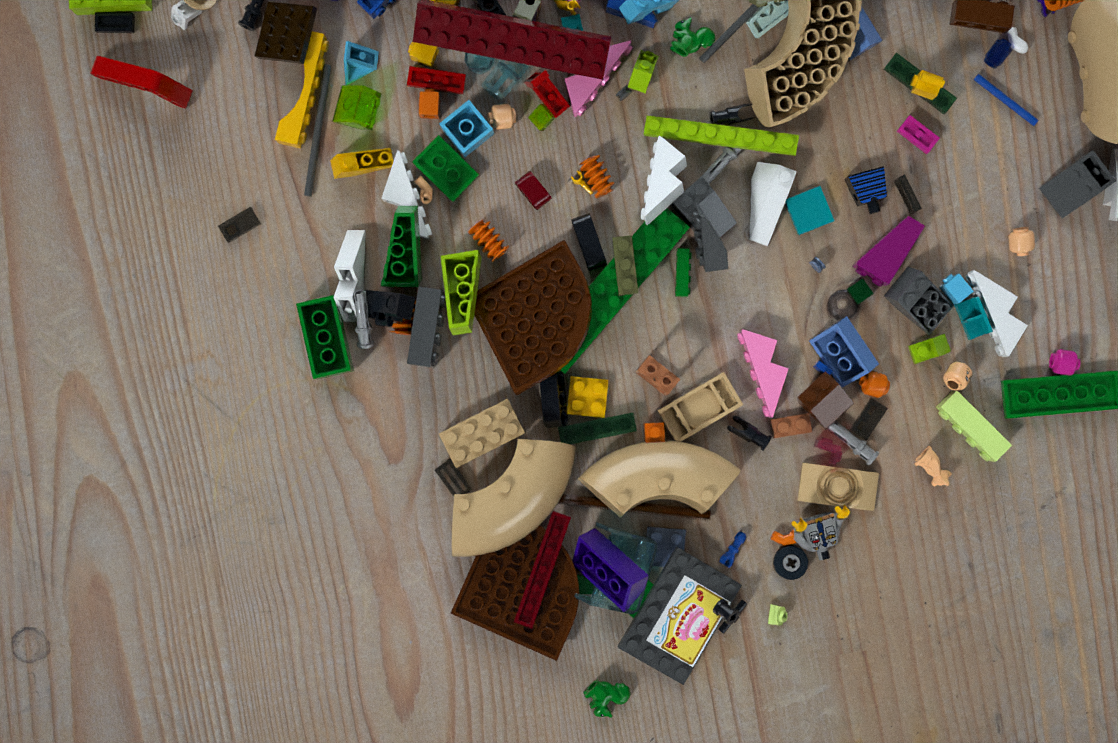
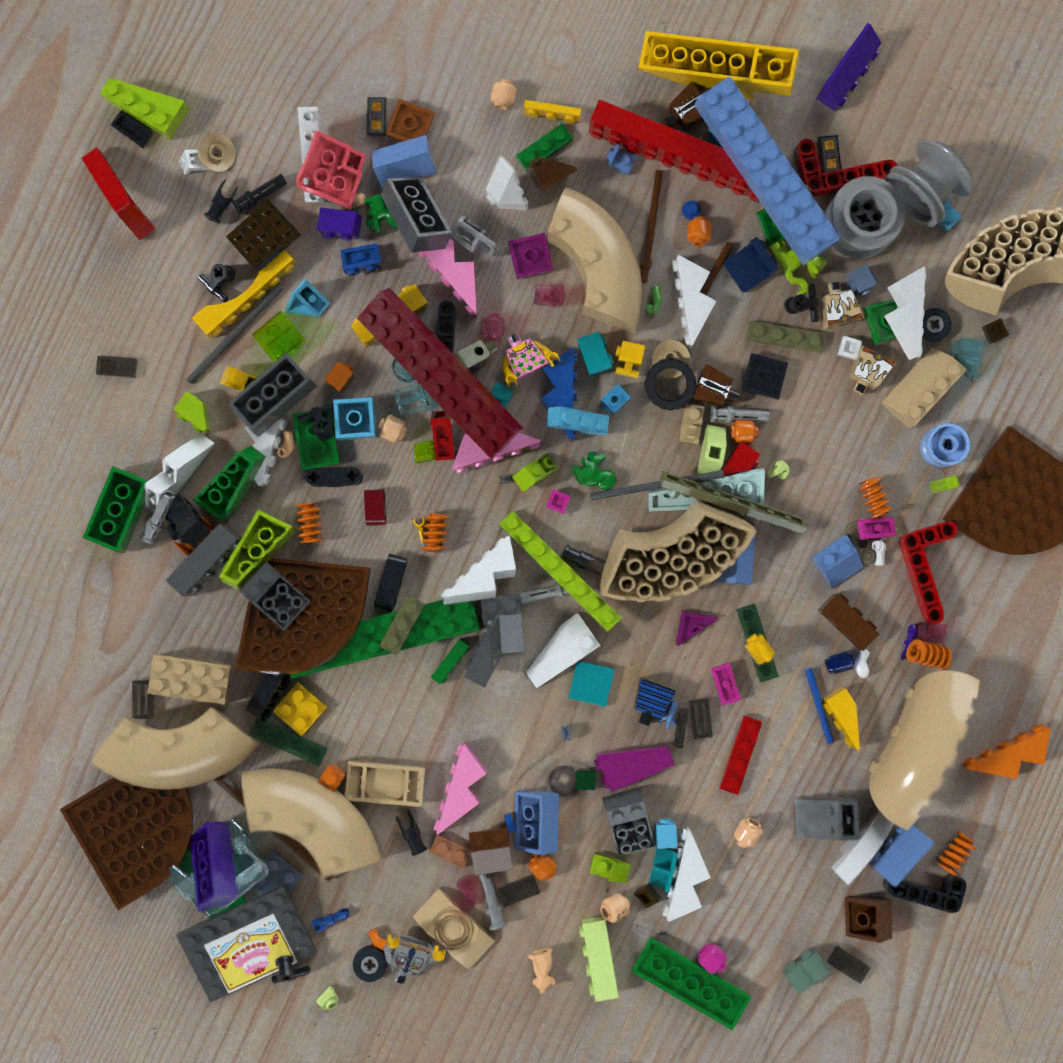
camera: 30 degrees right, 0 degrees up
(231, 33) = (219, 204): none -> black piece
(274, 95) = (218, 279): none -> black piece
(328, 215) = (195, 411): none -> lime slope
(387, 152) = (272, 395): none -> dark grey brick
(436, 80) = (360, 360): red plate -> none
(444, 149) = (320, 421): none -> black piece
(482, 188) = (334, 477): none -> black piece
(503, 314) = (274, 596): none -> dark grey slope
(542, 569) = (158, 827): dark red plate -> none
(603, 693) = (140, 963): green animal -> none
(664, 379) = (367, 729): nougat window -> none
(678, 82) = (558, 501): none -> dark pink plate
(856, 106) = (691, 624): none -> magenta tile
(891, 192) = (670, 715): none -> medium blue bar
(923, 172) = (708, 718): none -> clear smoke tile
(970, 183) = (740, 755): none -> red plate
(976, 348) = (647, 895): none -> dark brown plate
(1030, 89) = (845, 714): none -> yellow slope

